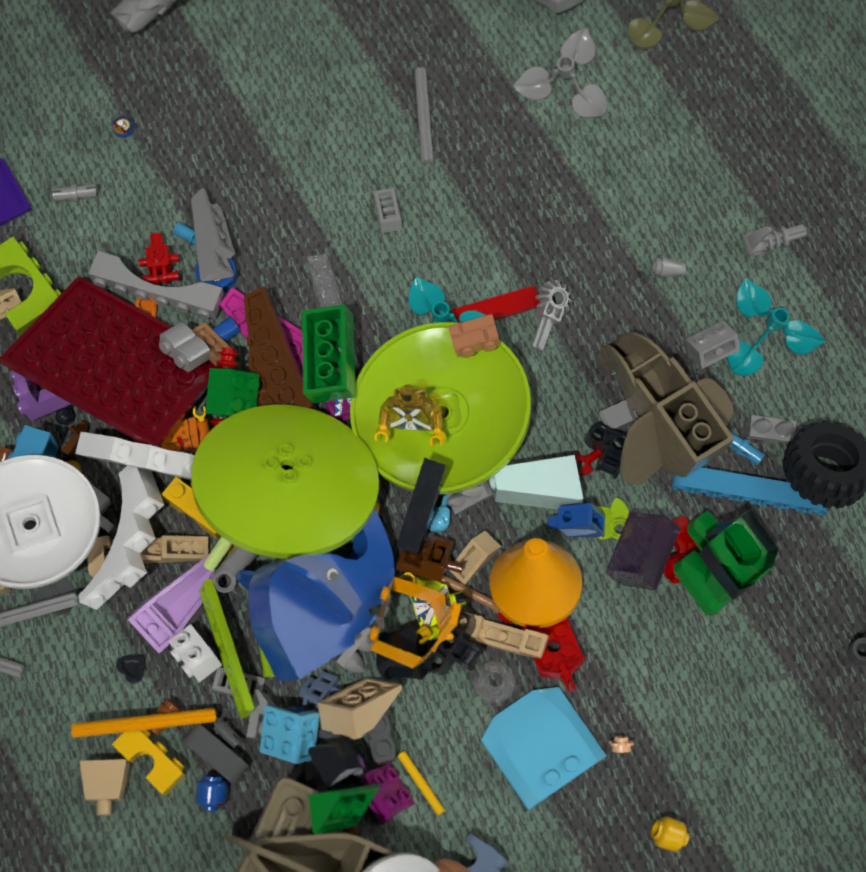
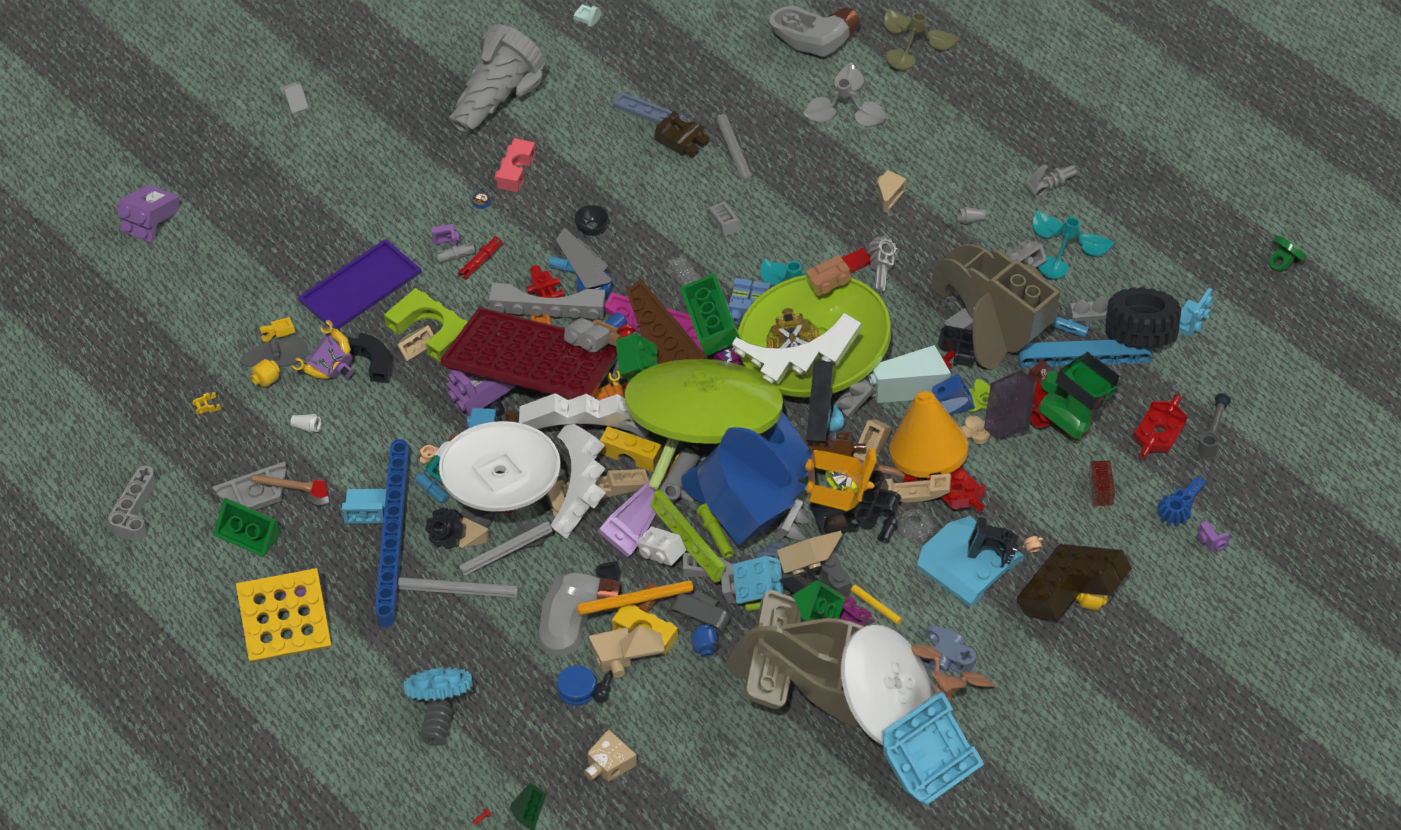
camera: 10 degrees left, 20 degrees down
(52, 818) = (576, 685): none -> blue head
(68, 166) = (445, 234): none -> medium lavender bracket
(74, 699) = (560, 623): none -> light grey piece
(77, 836) = (602, 691): none -> black bar
(106, 201) = (485, 253): none -> red pin
(135, 790) = (641, 643): none -> tan slope
(178, 74) = (518, 153): none -> coral arch
(235, 173) = (590, 214): none -> black piece
(340, 44) = (642, 108): none -> sand blue tile
(368, 94) = (683, 140): none -> dark brown hips
(380, 328) = (741, 299): none -> medium blue hips
(412, 448) = (776, 362): none -> white arch
(460, 684) = (887, 530): none -> black pin
(561, 736) = (994, 538): none -> black tile
(584, 212) = (890, 189): none -> tan slope
(595, 562) = (975, 429): none -> tan plate
(647, 805) = (1070, 572): none -> dark brown piece
(689, 506) = (1038, 372): none -> clear red tile
(722, 678) = (1101, 483): none -> clear red brick
(809, 723) = (1178, 506): none -> blue gear
(824, 600) = (1165, 416): none -> red plate
(826, 780) = (1208, 537): none -> medium lavender bracket

